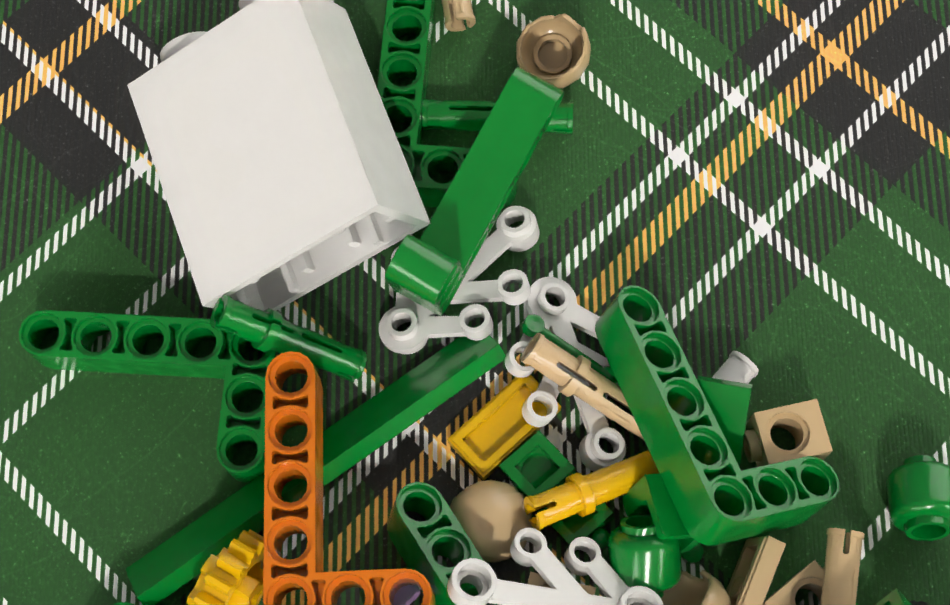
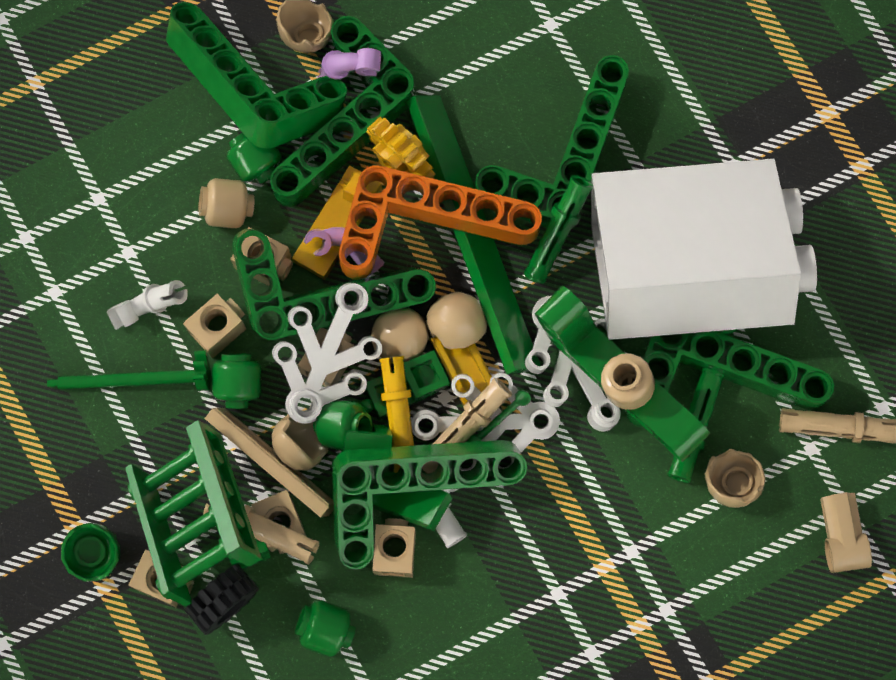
camera: 105 degrees right, 5 degrees up
(449, 446) = (457, 320): none -> tan hair
(490, 149) = (623, 370): none -> tan head

